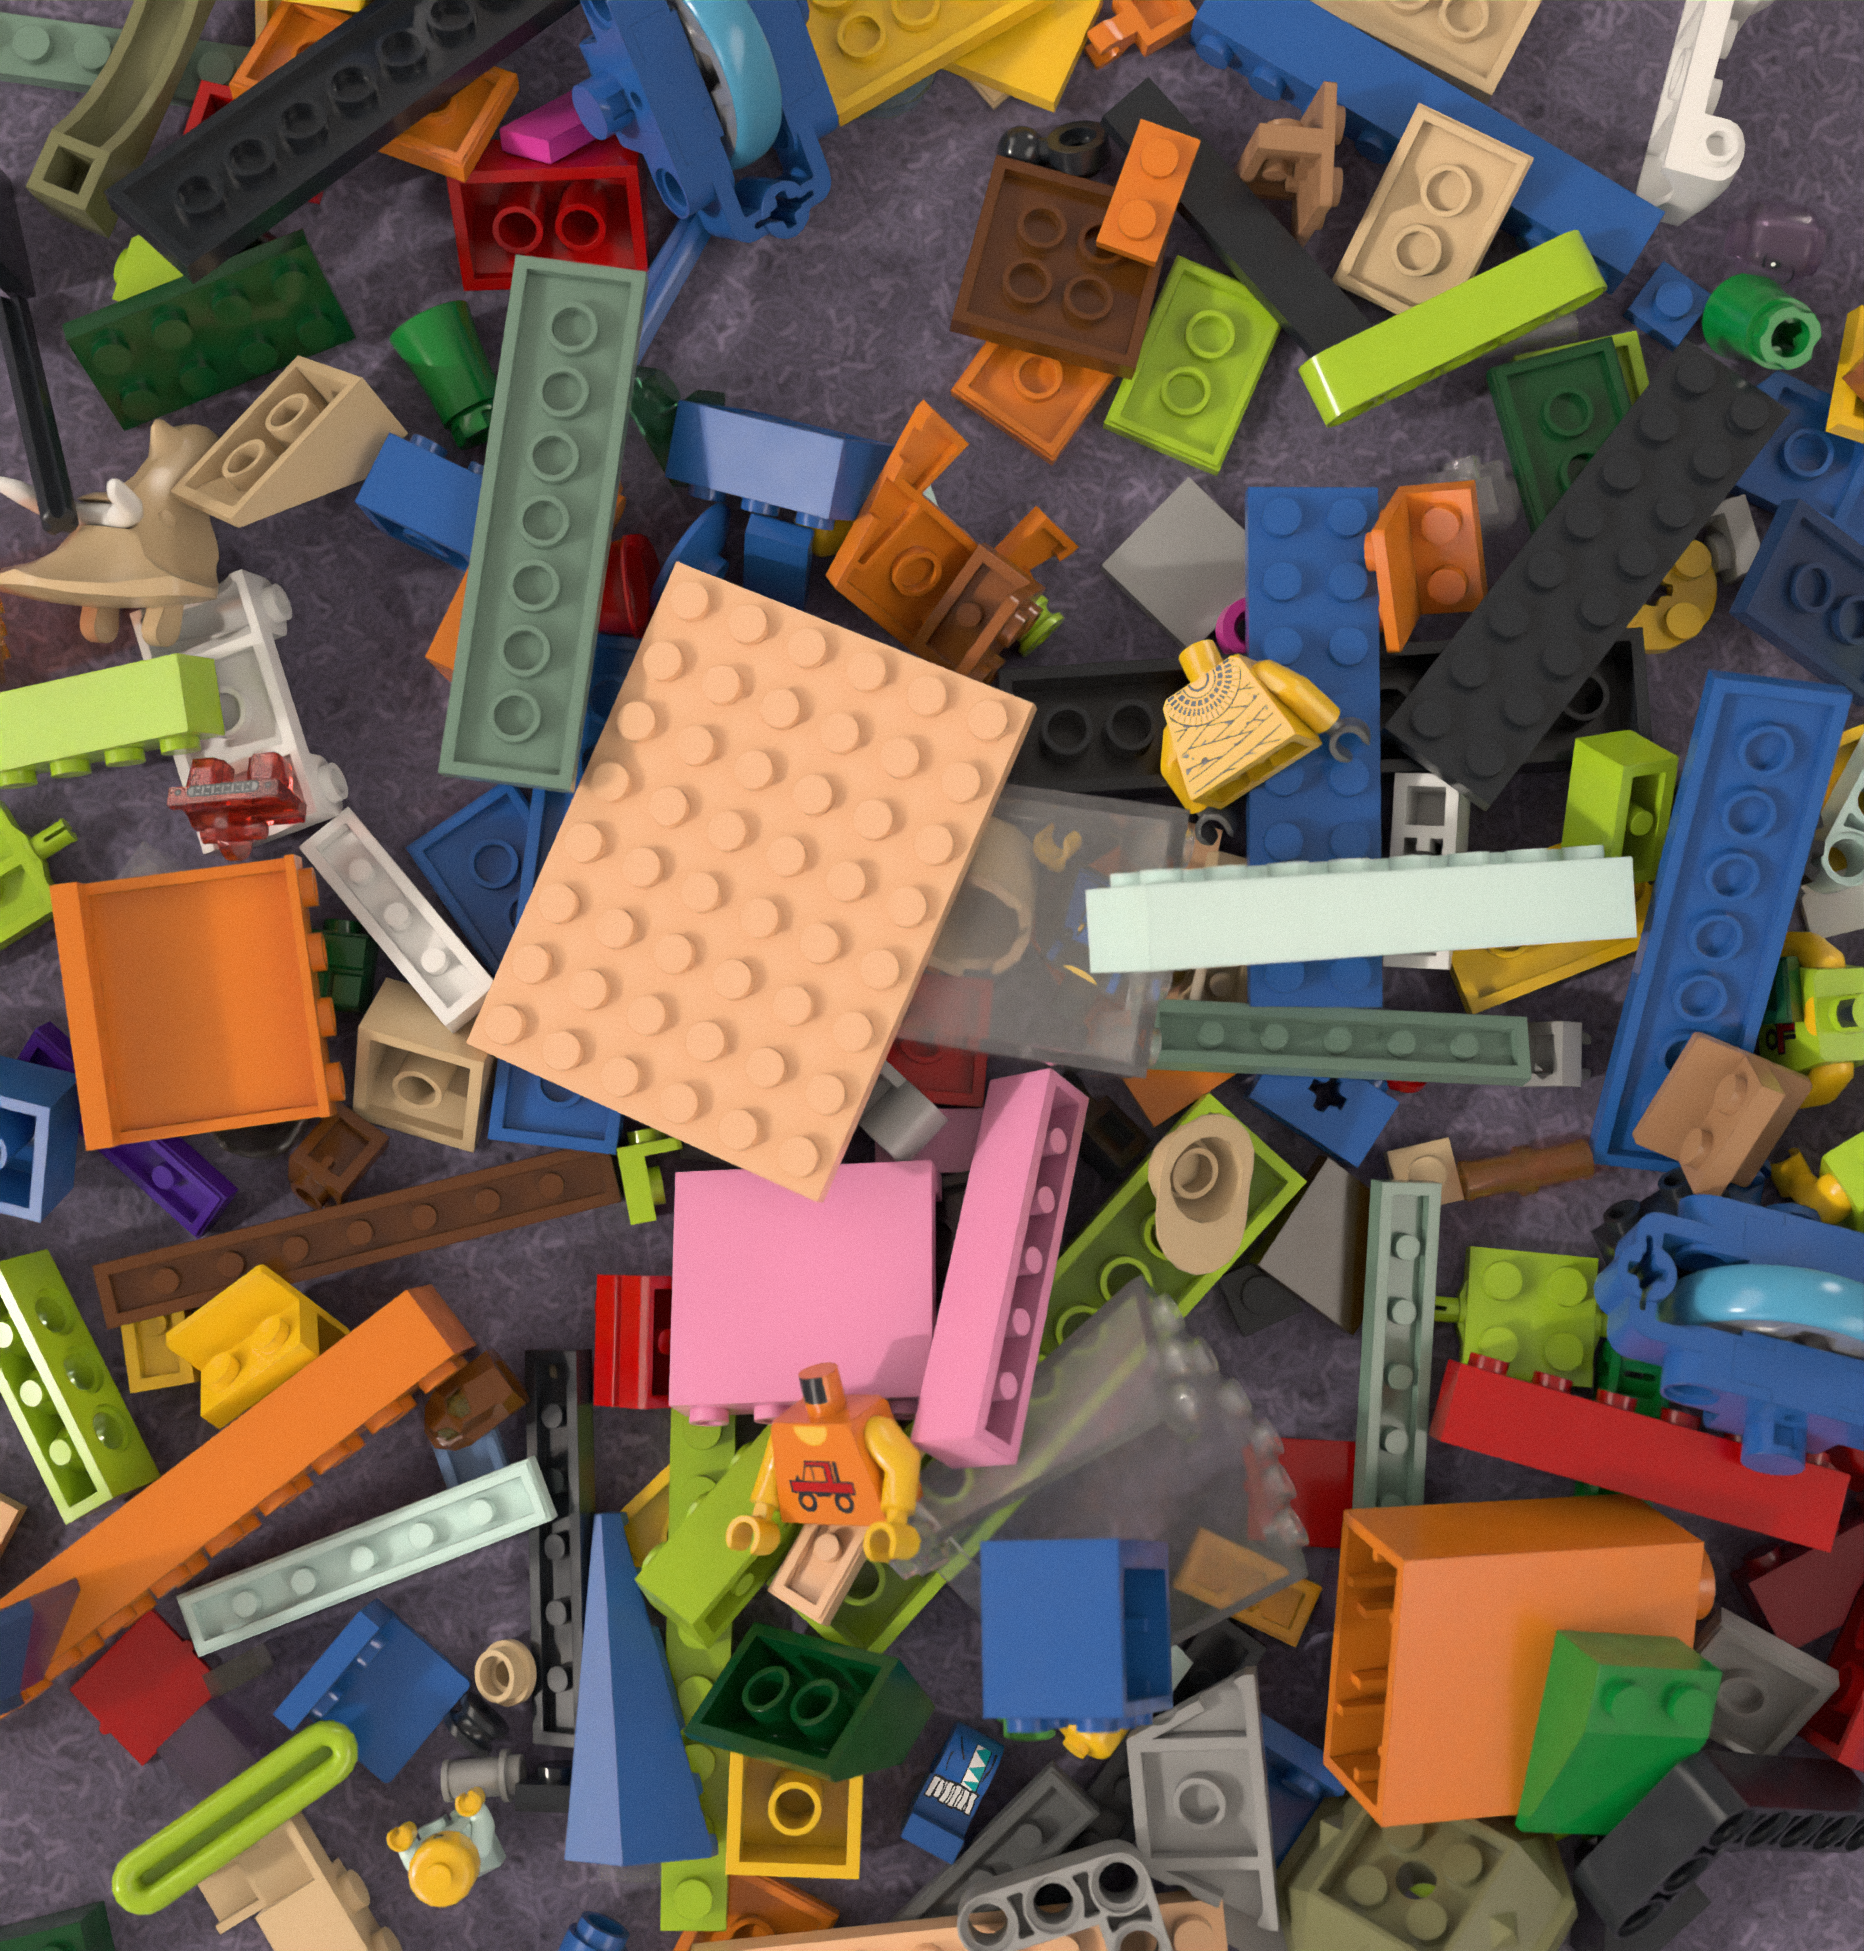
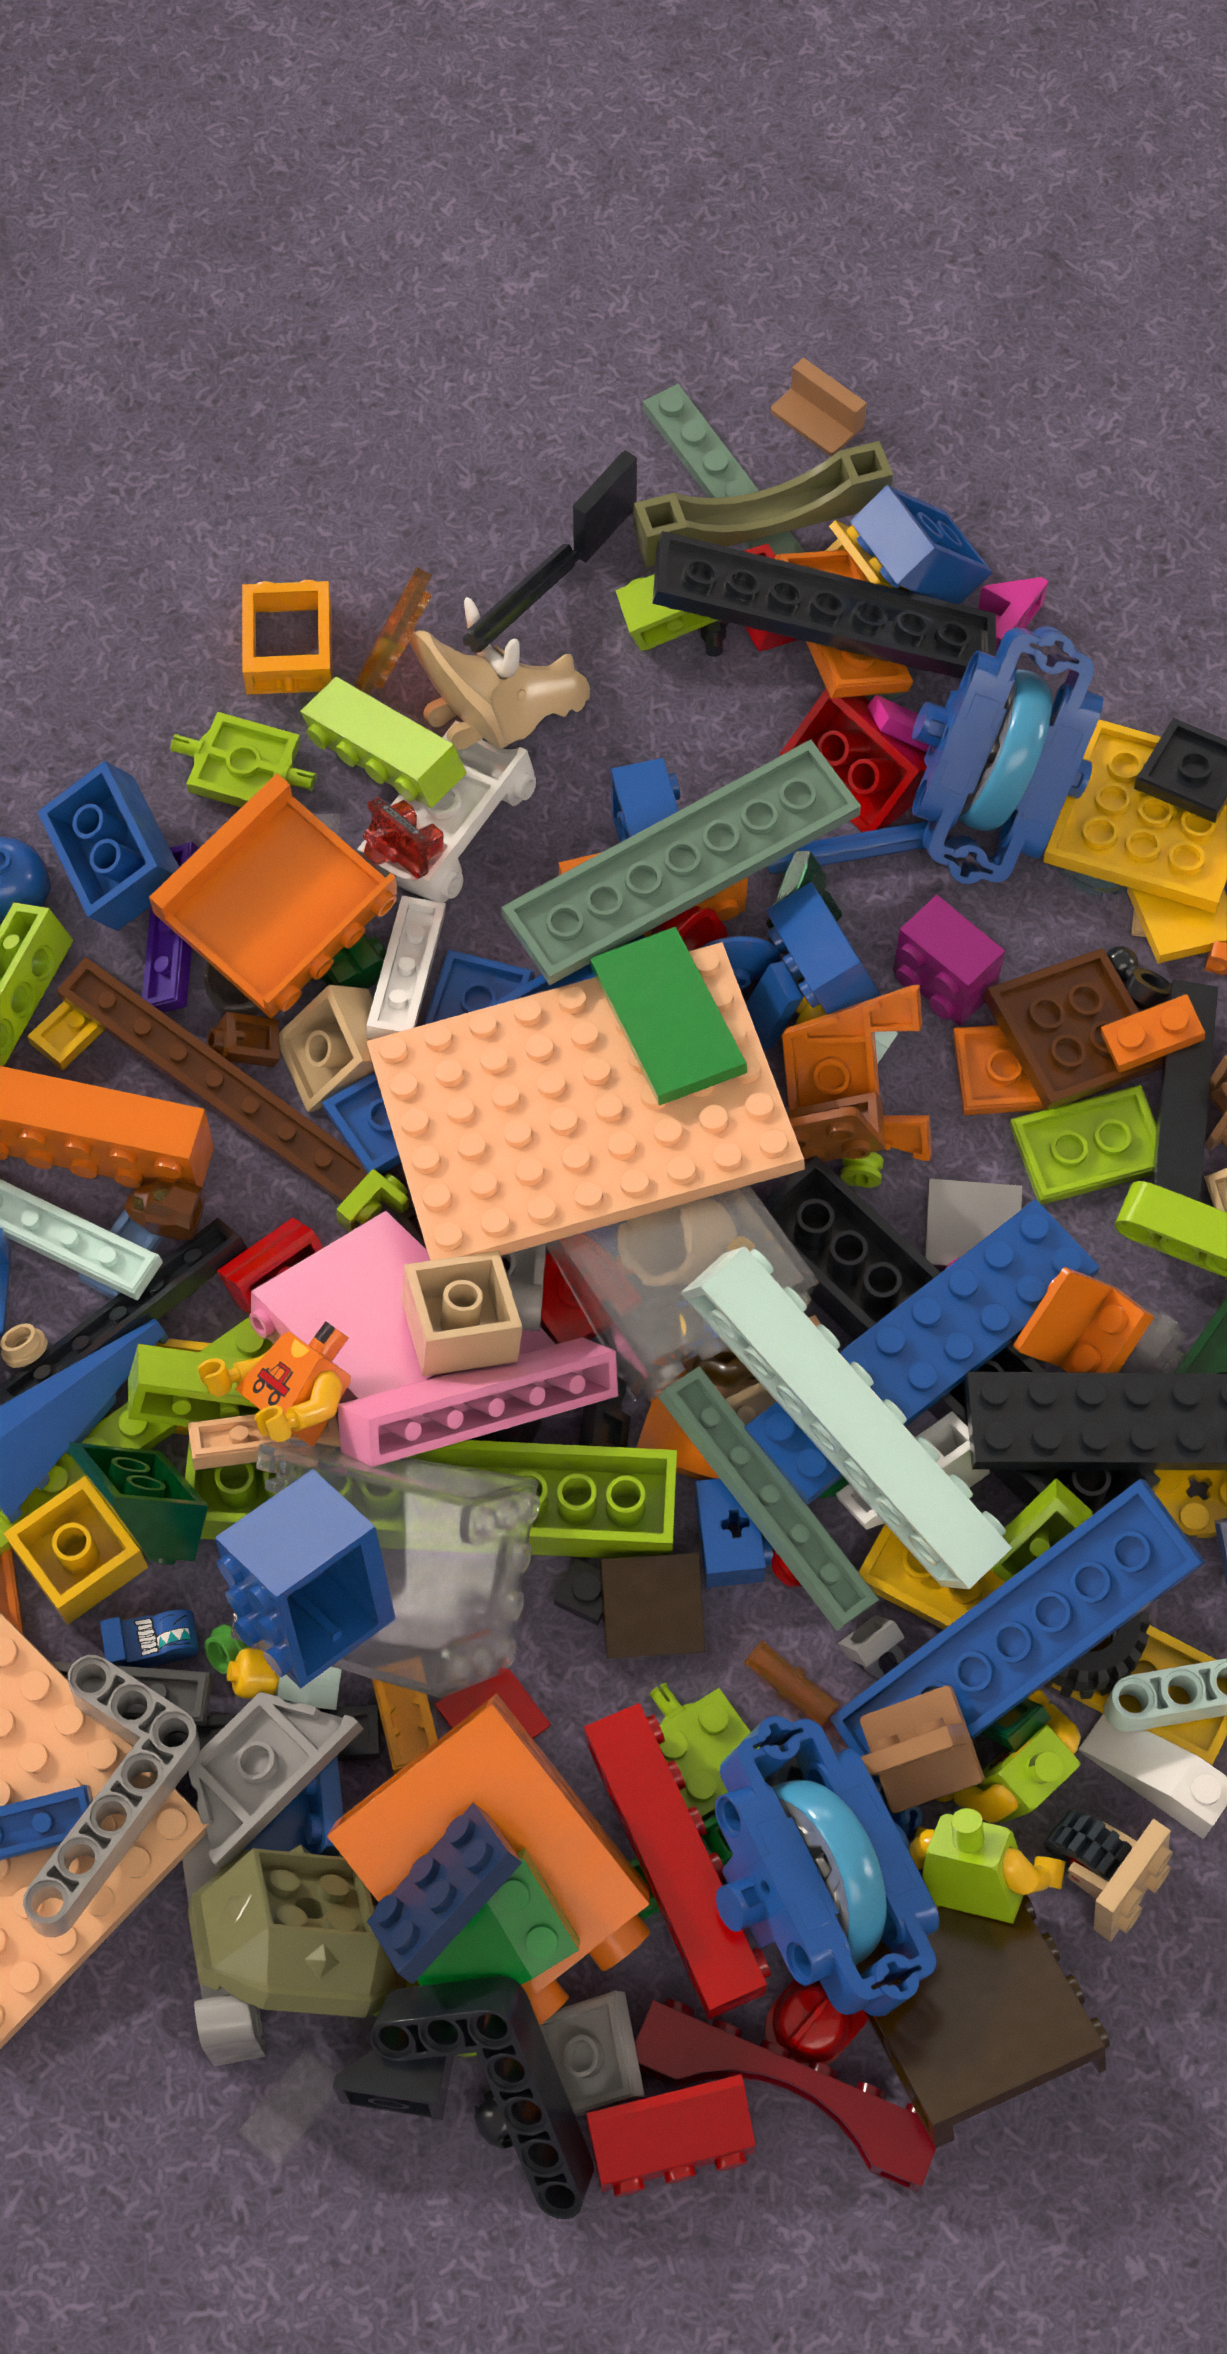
camera: 50 degrees right, 20 degrees down
(210, 335) = (642, 647): dark green plate -> none
(251, 1342) = (110, 1058): yellow bracket -> none
(293, 444) = (615, 724): tan slope -> none
(451, 368) = (732, 757): green plant -> none
(730, 701) = (668, 1016): none -> green tile
(882, 332) = (947, 960): none -> magenta piece
(894, 1210) = (461, 1313): none -> tan brick
(1202, 1191) = (614, 1473): tan piece -> none
(1239, 729) = (895, 1291): yellow torso -> none
(1397, 1343) = (632, 1674): sand green plate -> none
(1427, 1162) = (737, 1630): tan plate -> none
(1557, 1766) = (443, 1892): none -> dark blue plate

